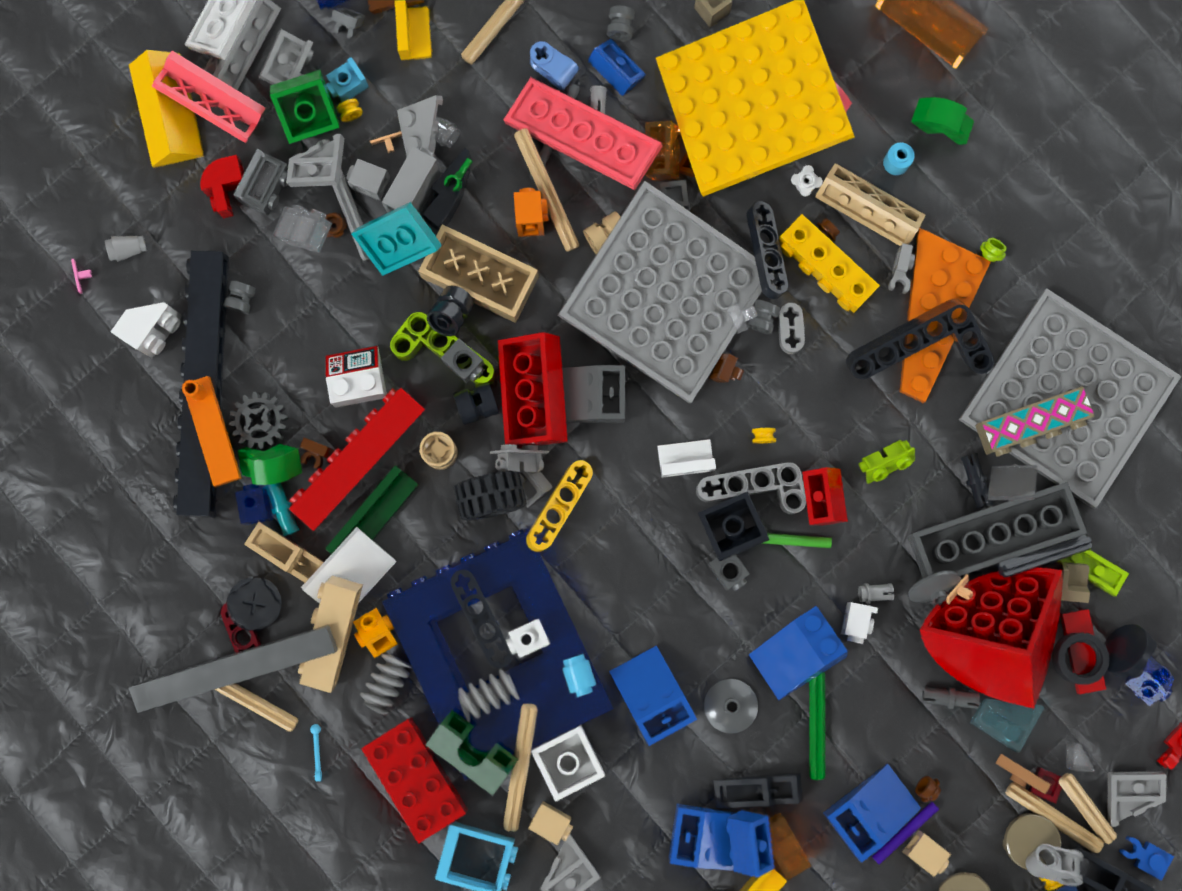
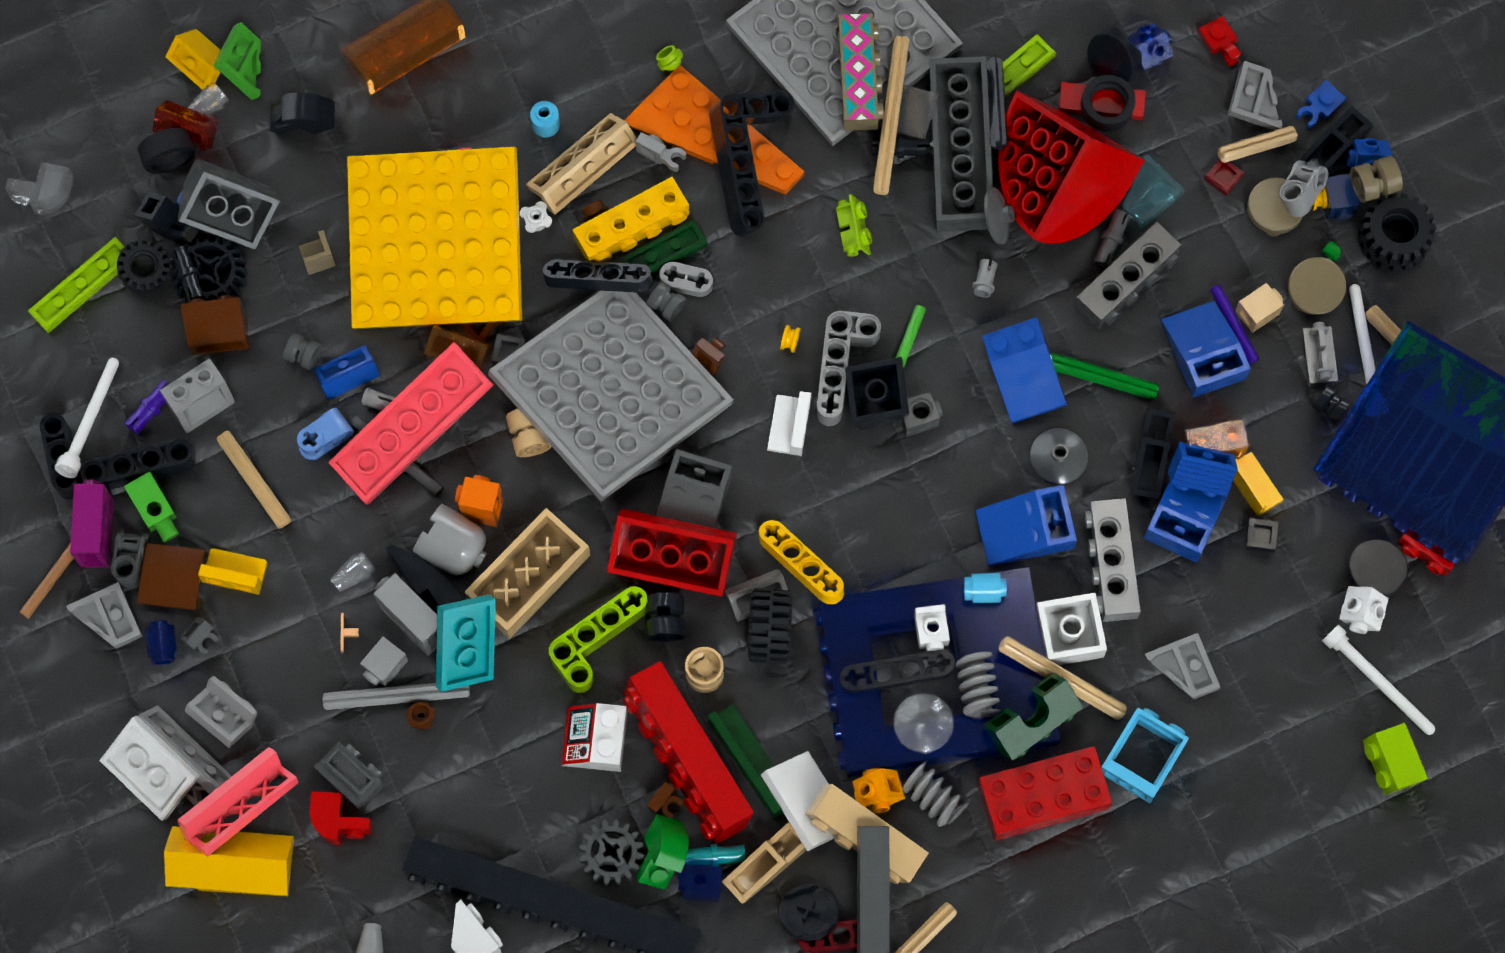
camera: 75 degrees left, 10 degrees down
(211, 431) = (610, 899): orange piece -> none
(239, 297) = (468, 836): dark grey wheel -> none
(302, 228) = (416, 745): clear brick -> none
(304, 106) = (283, 702): green brick -> none
(315, 730) = (962, 887): medium azure hinge -> none
(318, 165) = (352, 709): light grey wing -> none
(349, 110) = (299, 661): yellow bush -> none
(354, 85) = (262, 643): medium azure brick -> none
(420, 124) = (345, 590): light grey wing -> none
(442, 655) = (923, 723): none -> clear dish
(450, 311) = (560, 609): black wheel -> none
(455, 353) = (617, 623): dark grey brick -> none
(458, 176) = (415, 560): green hand -> none
(486, 201) = (452, 542): none -> light grey cylinder
(529, 458) = (740, 585): light grey hinge -> none
(547, 190) = (451, 480): tan axle -> none
(551, 823) = (1128, 666): tan brick -> none
(611, 806) = (1114, 515): none -> light grey brick
(741, 316) = (661, 320): clear tile -> none
(813, 302) = (668, 248): none -> dark green tile
(824, 496) = (872, 296): red brick -> none
(858, 622) = (1009, 304): white brick -> none
(928, 789) = (1196, 288): reddish brown plate -> none
(944, 117) = (516, 63): green brick -> none
(959, 738) = (1153, 242): none -> dark grey brick
(960, 590) = (1008, 191): light nougat piece -> none
(1003, 463) = (891, 115): none -> tan axle
(1021, 775) = (1207, 194): medium nougat plate -> none
(1061, 821) = (1265, 171): tan axle -> none
(1075, 582) = (1031, 84): dark tan panel -> none
(1076, 758) = (1205, 137): clear slope -> none

